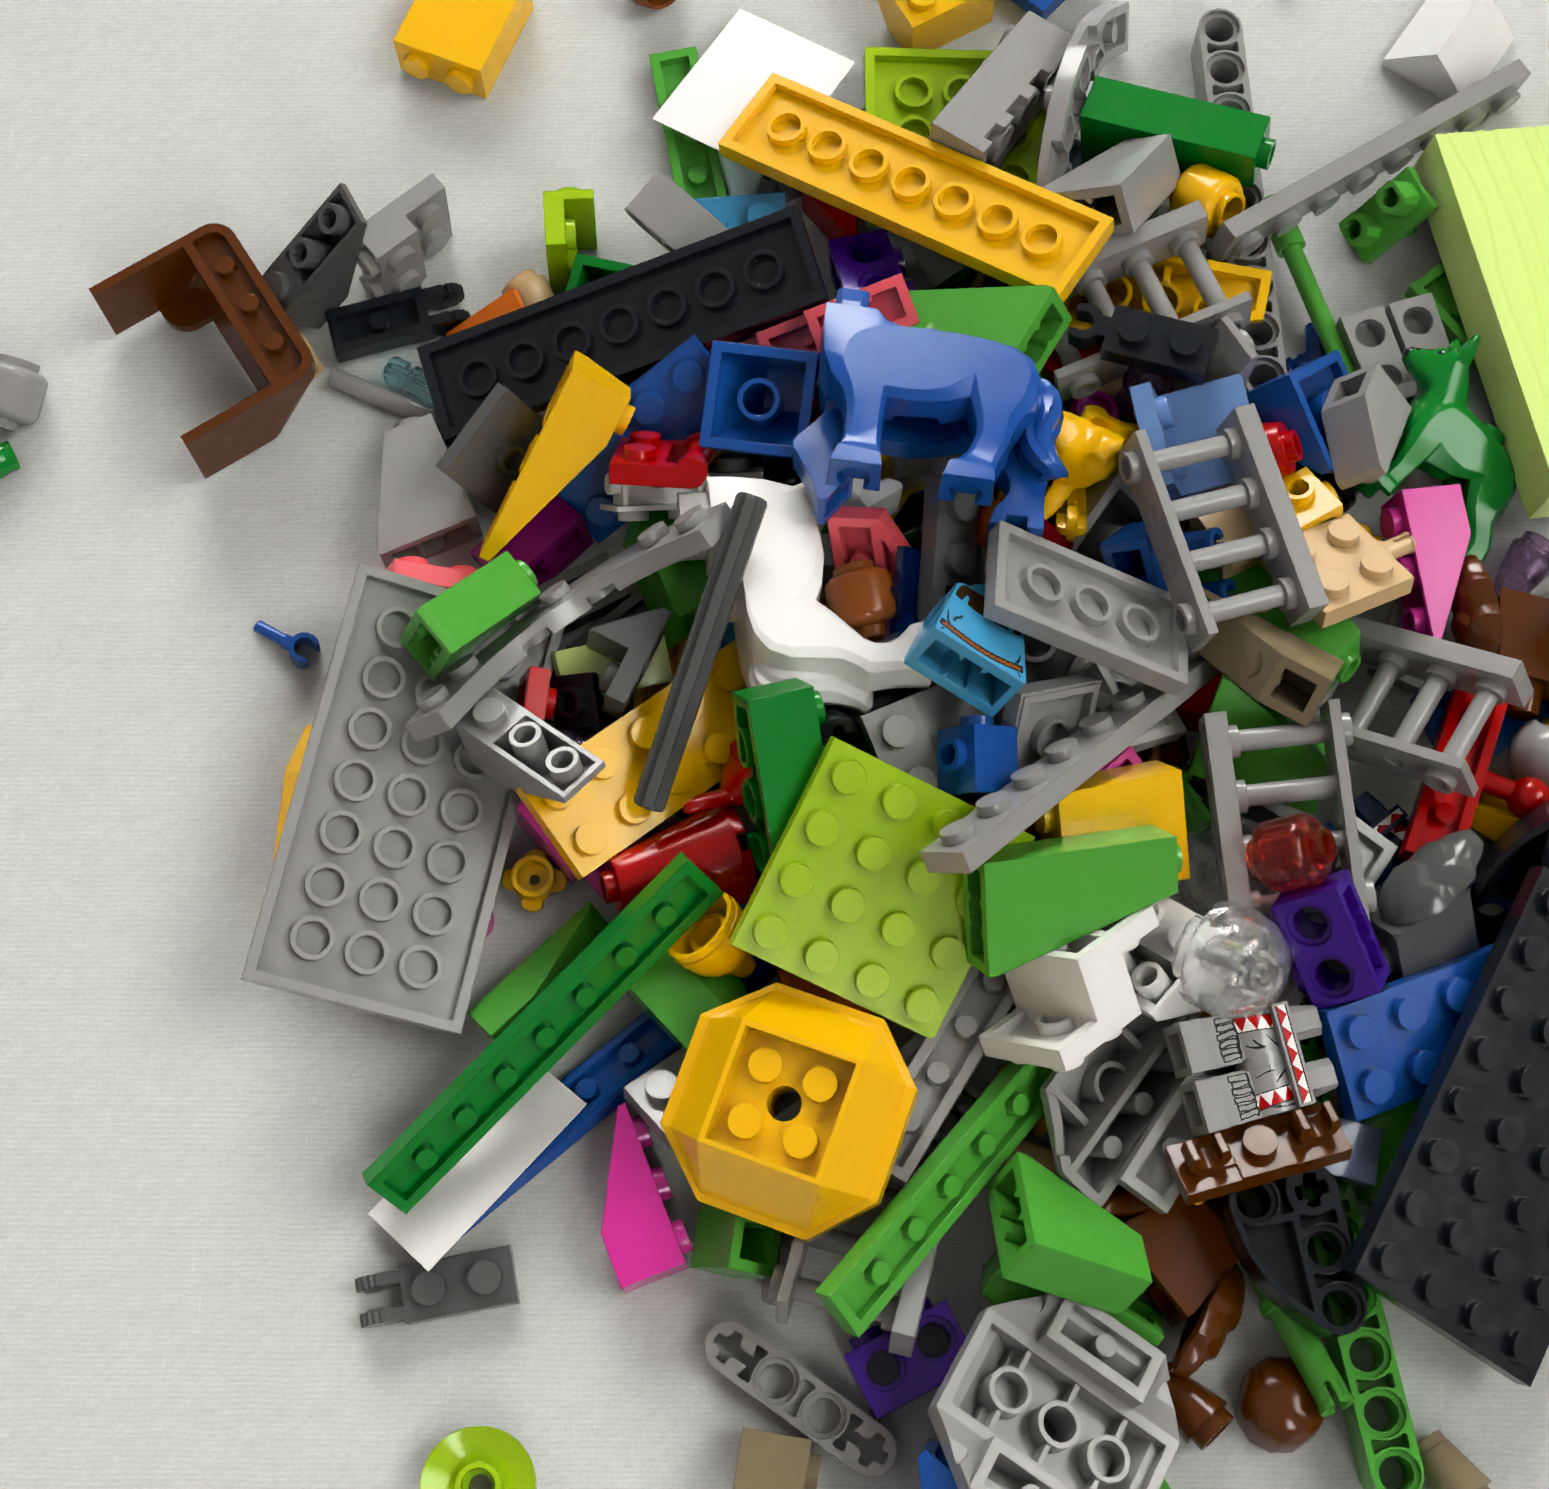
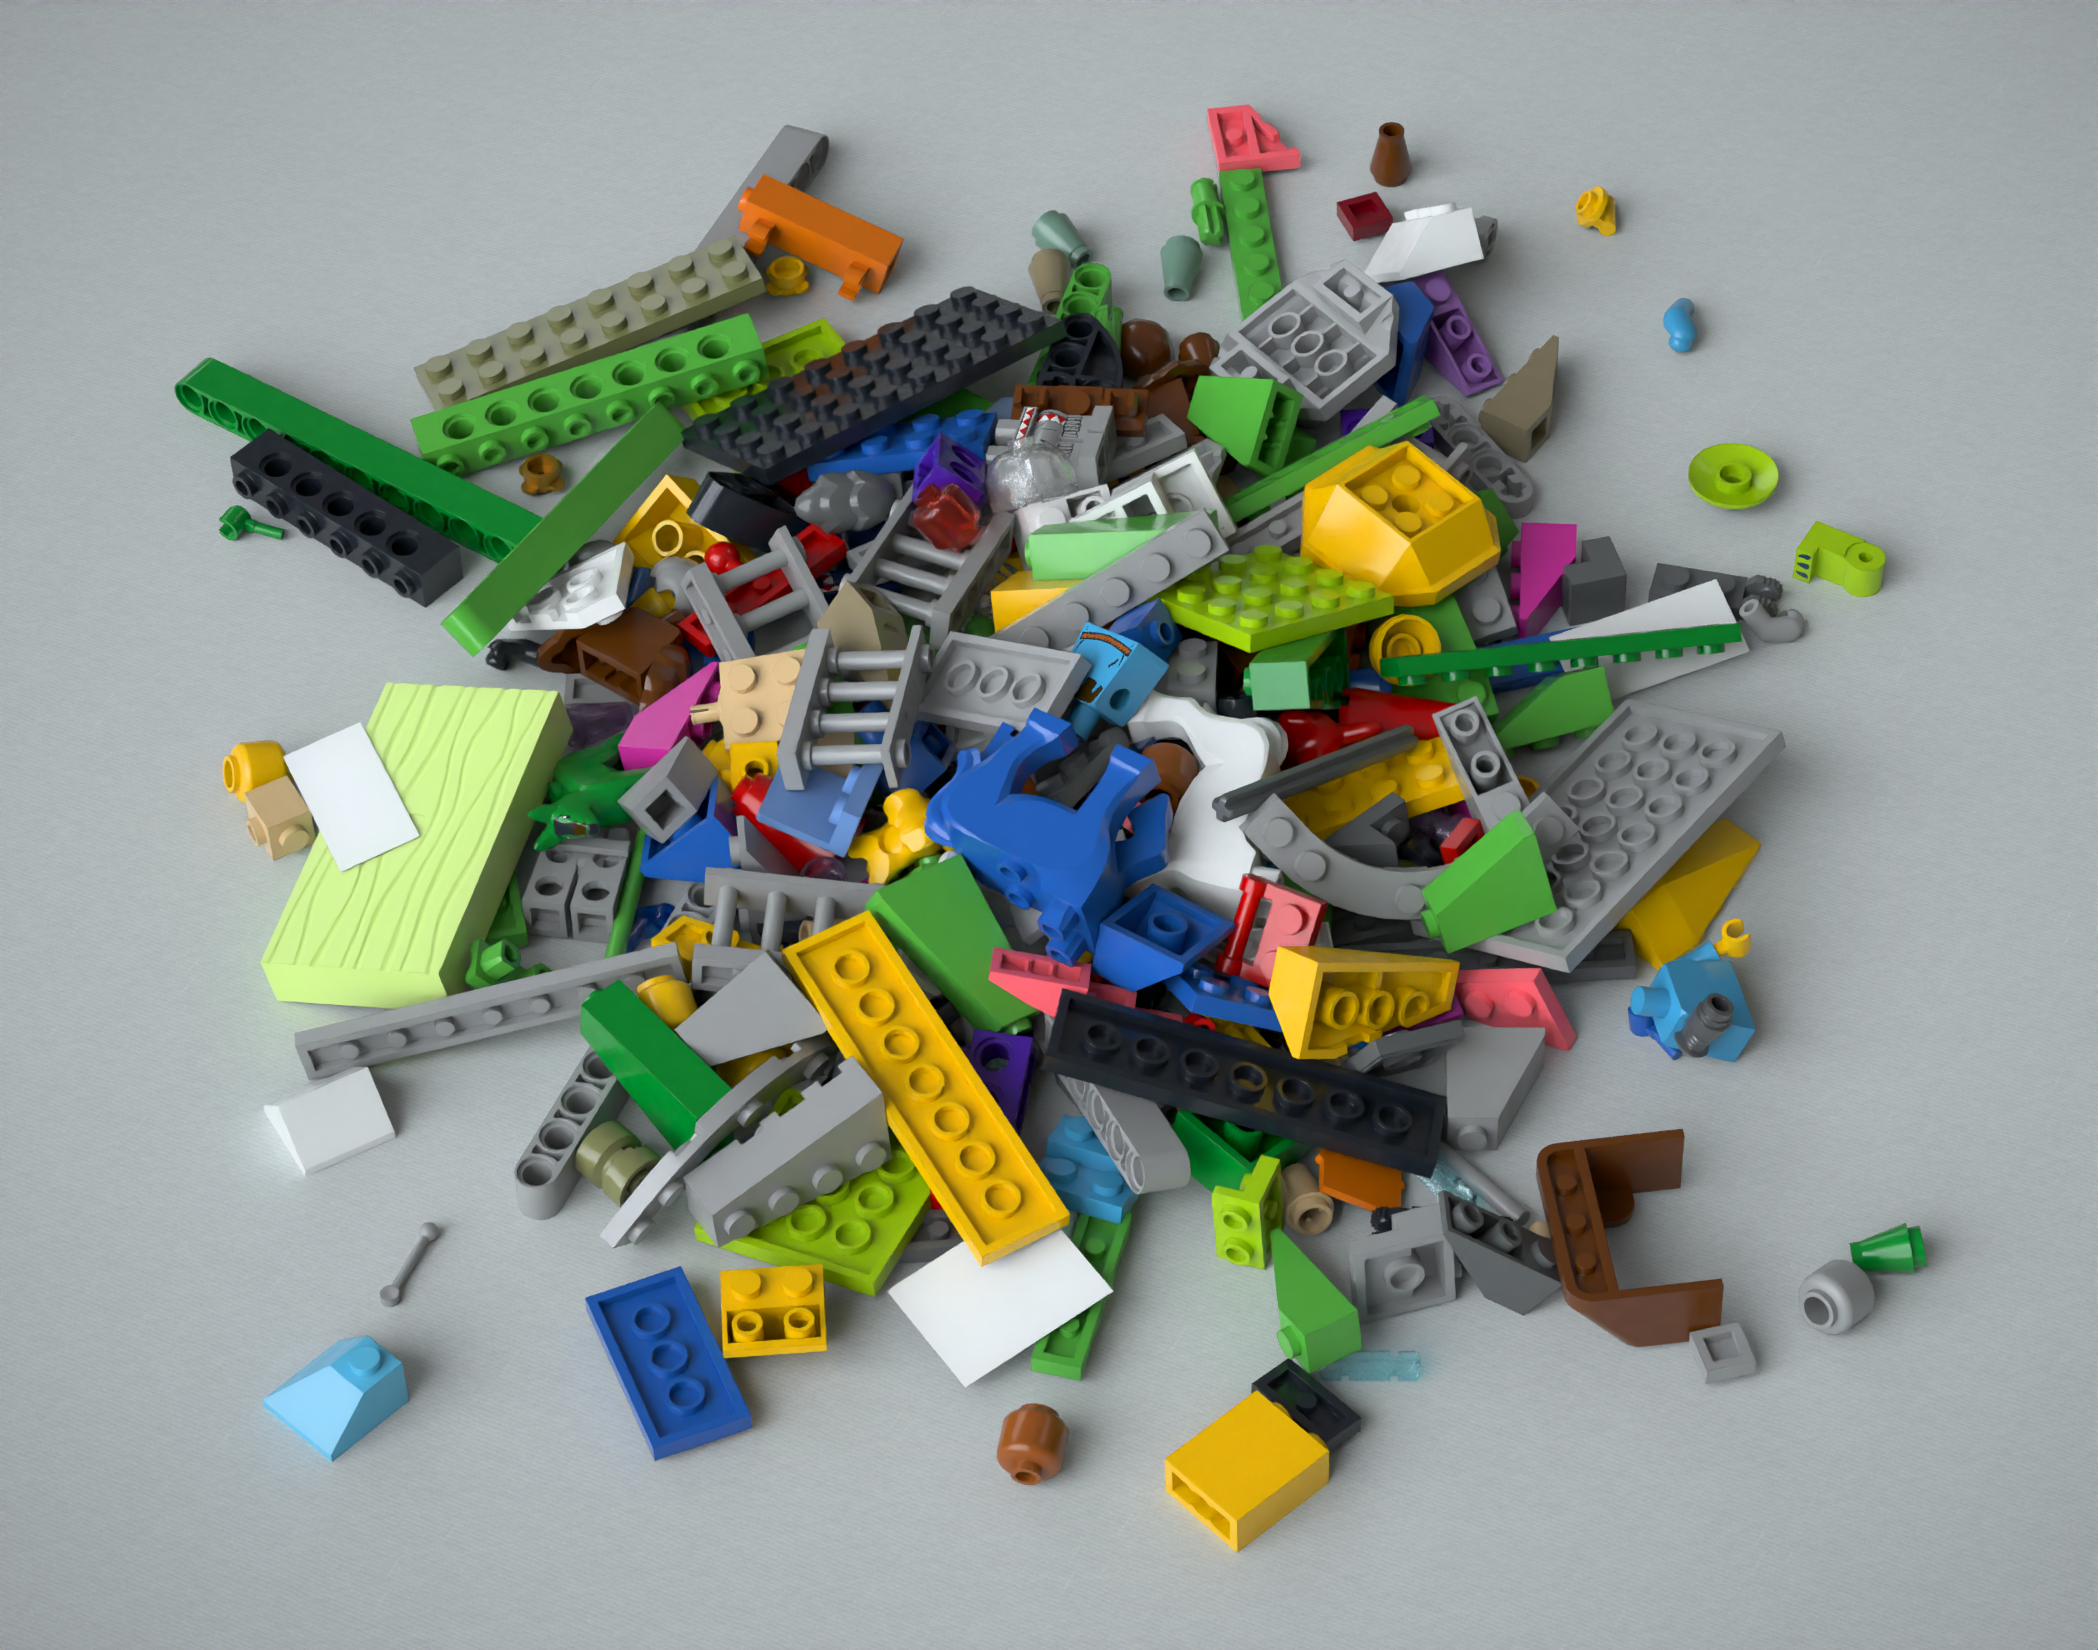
camera: 155 degrees left, 25 degrees down
(84, 304) = (1722, 1352): none -> light grey plate
(239, 654) = (1700, 999): none -> dark azure torso
(286, 1399) = (1840, 560): none -> lime leg
(349, 1257) = (1772, 629): none -> light grey arm
(407, 173) = (1374, 1366): none -> clear light blue axle
(442, 104) = (1309, 1403): none -> black plate
(477, 176) = (1313, 1314): none -> bright green slope
(562, 1216) = (1594, 585): none -> dark grey piece
(1147, 341) = (812, 866): black plate -> none
(1175, 71) = (614, 1160): none -> olive wheel

